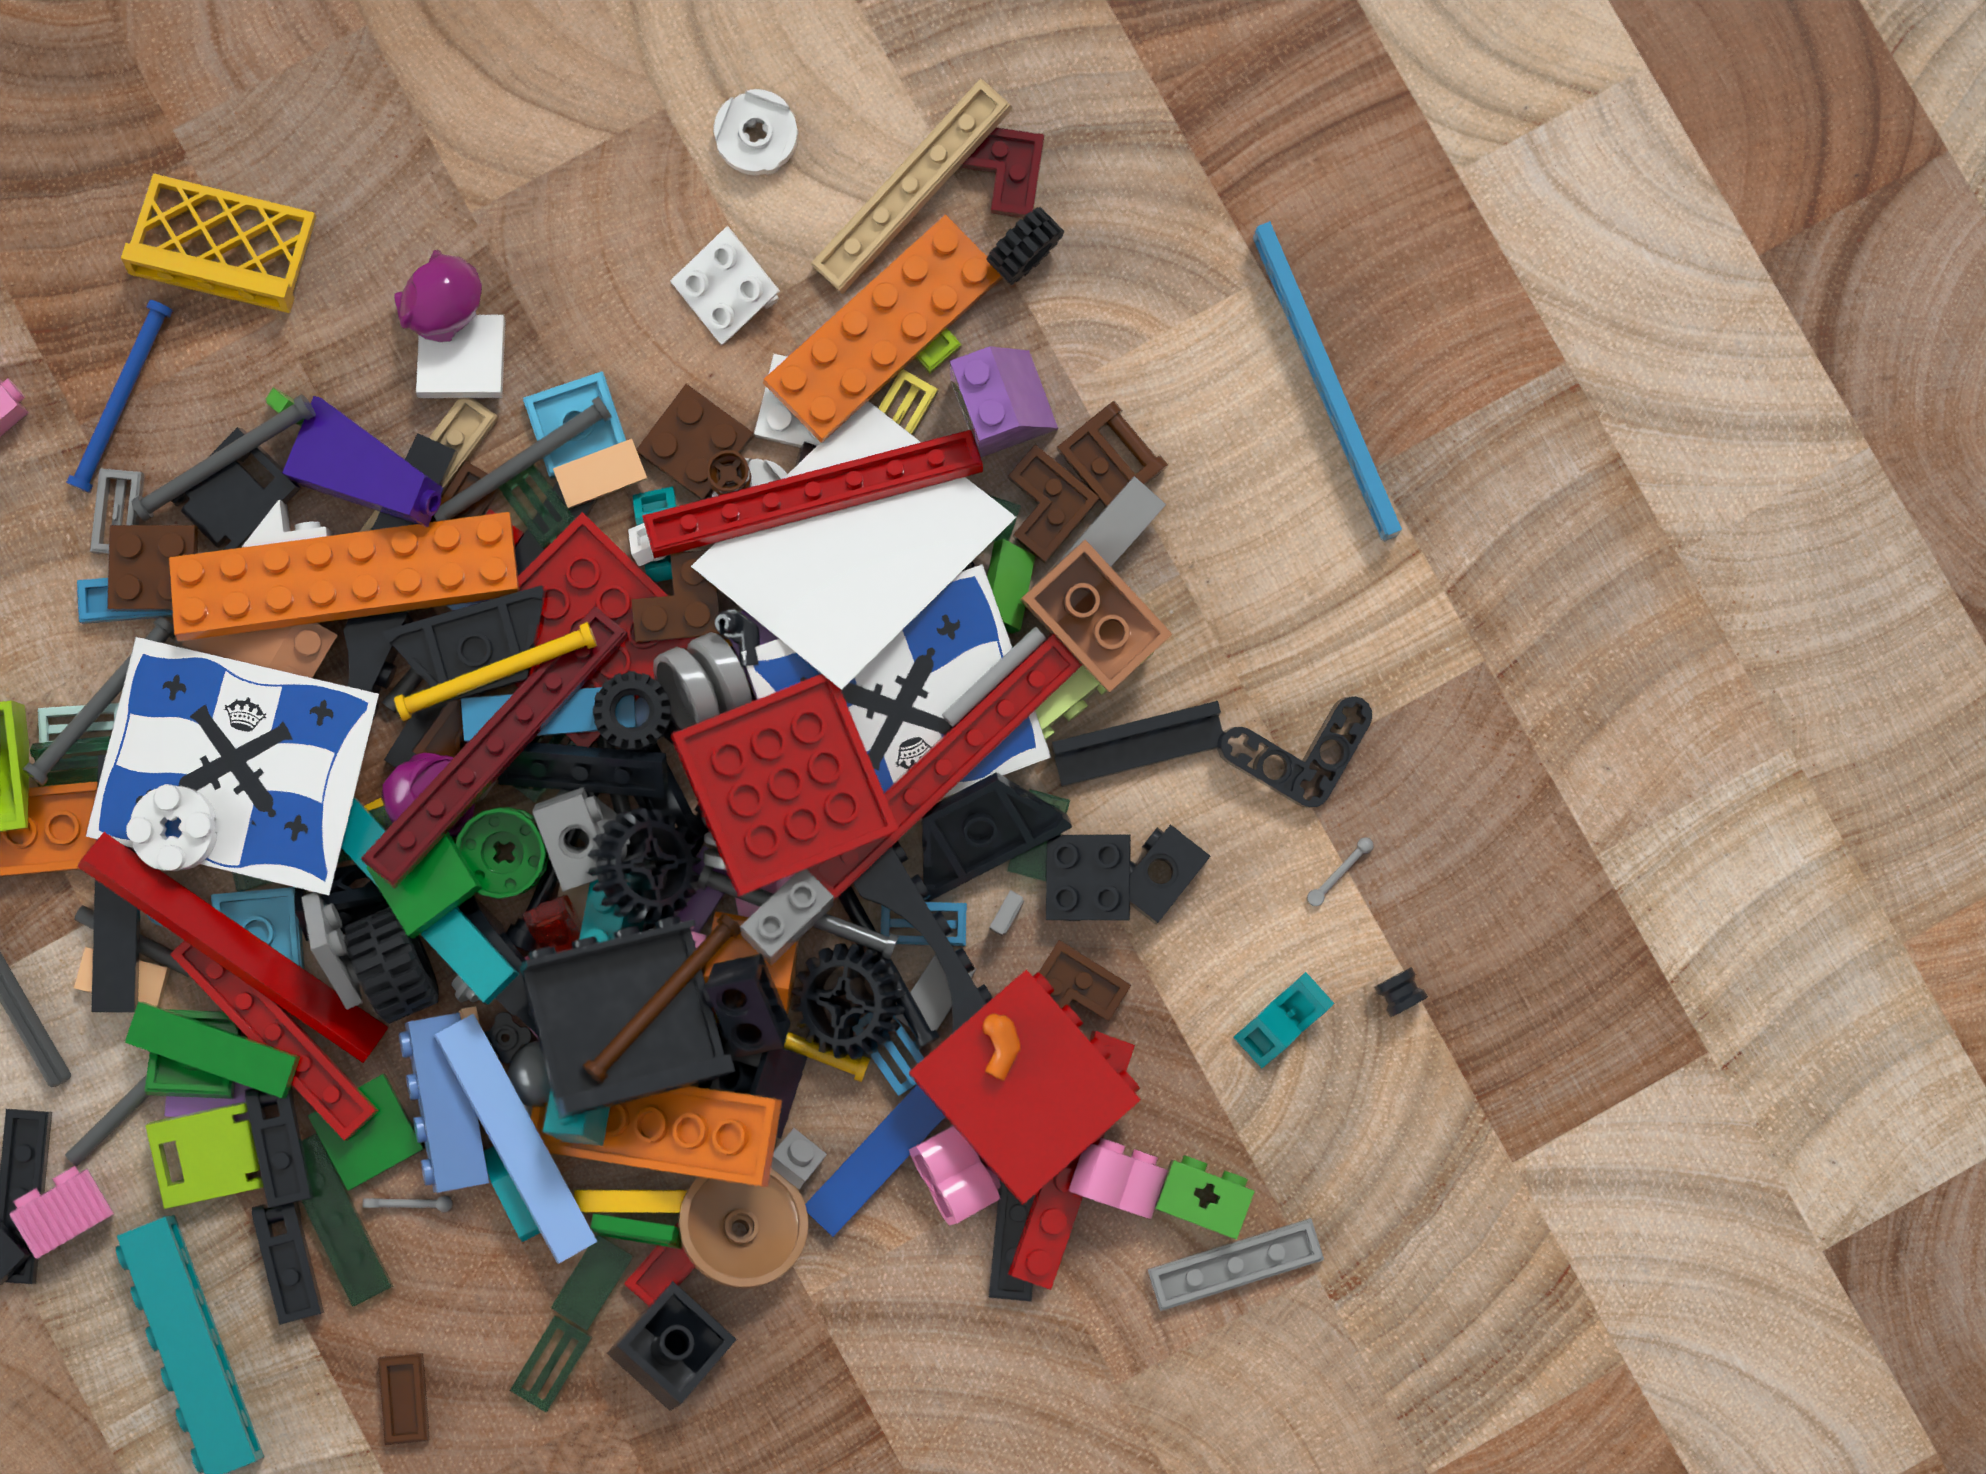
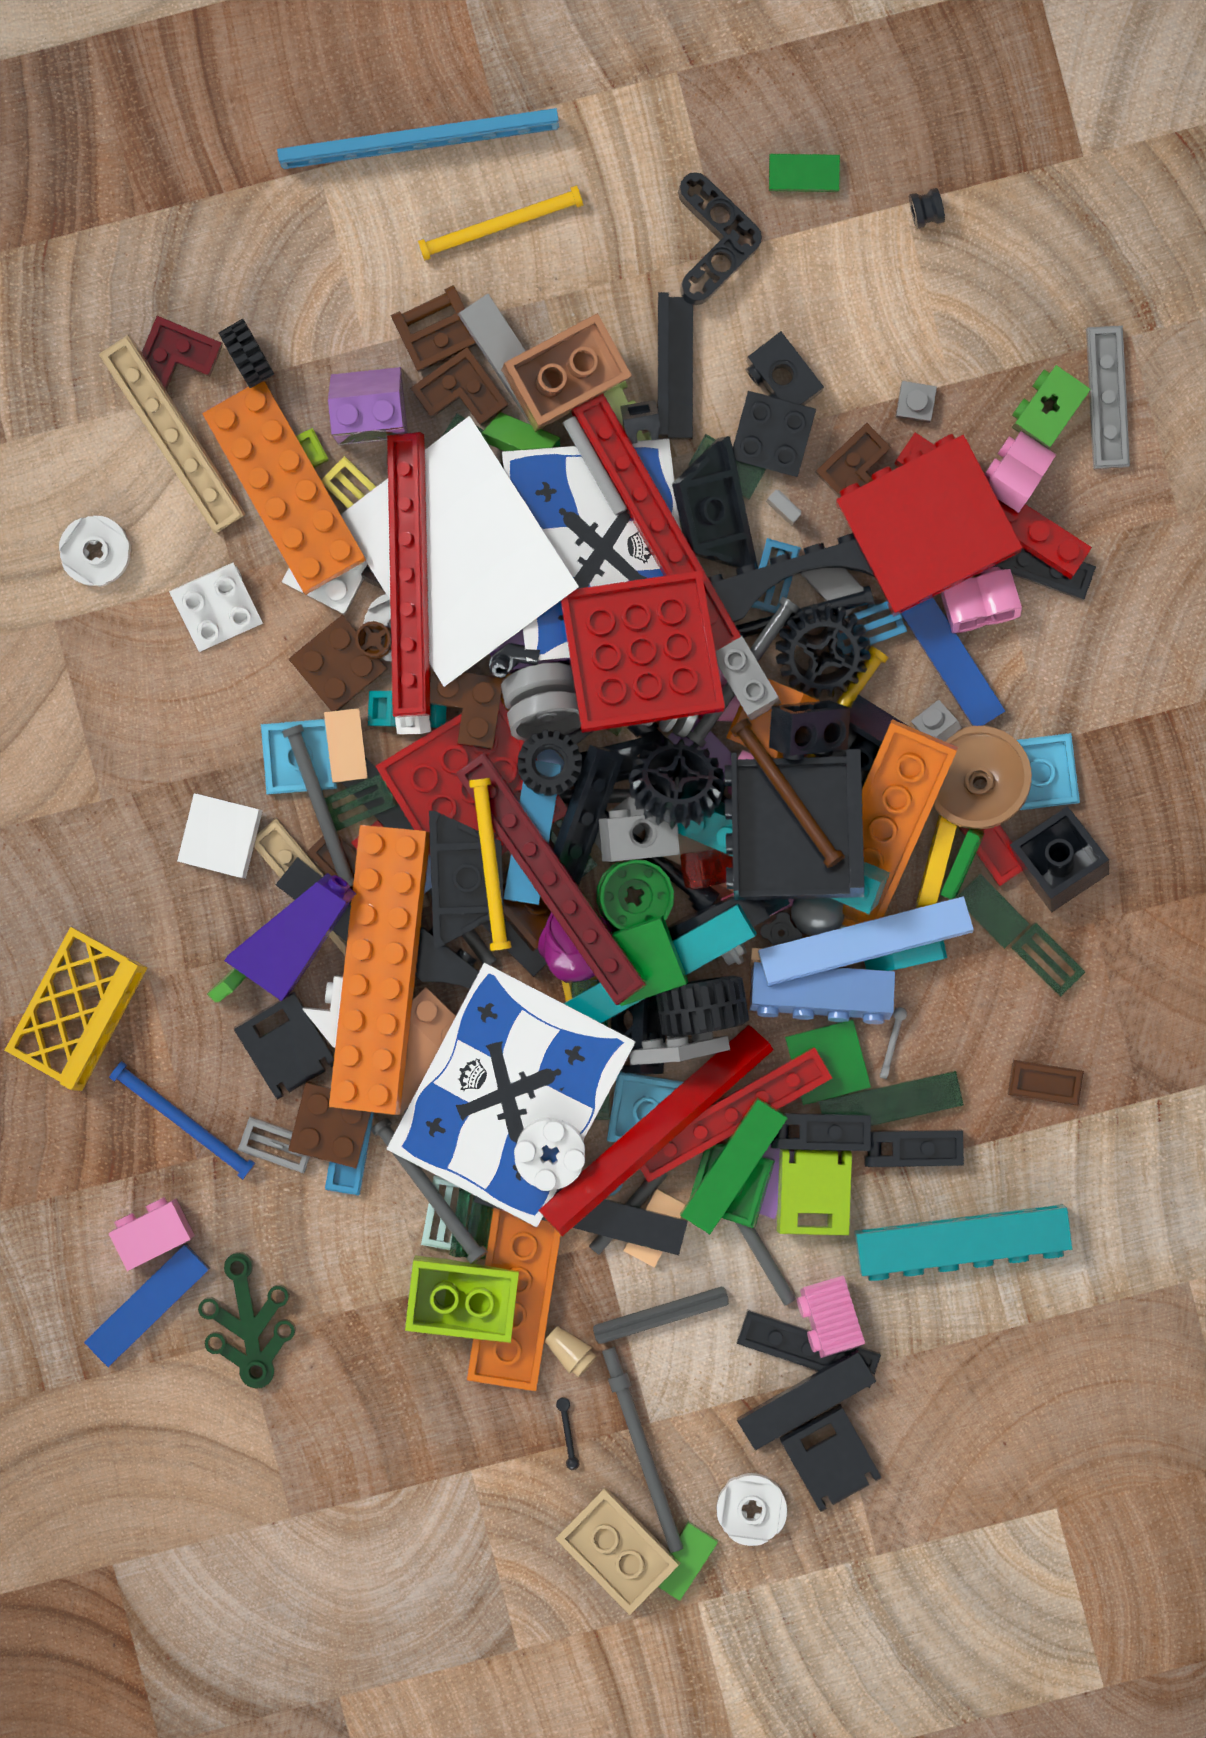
camera: 75 degrees left, 5 degrees up
(146, 506) = (256, 1045): dark grey bar -> none
(439, 297) = (168, 839): magenta helmet -> none
(775, 1309) = (1052, 771): none -> medium azure tile
(1006, 1043) = (892, 529): orange arm -> none
(1064, 715) = (641, 417): none -> black tile
(1171, 1038) = (916, 401): none -> light grey plate
(1254, 500) = (500, 223): none -> yellow bar
(1283, 1020) = (924, 308): teal slope -> none
(1316, 896) = (832, 257): light grey hinge -> none
(1405, 838) = (804, 172): none -> green tile

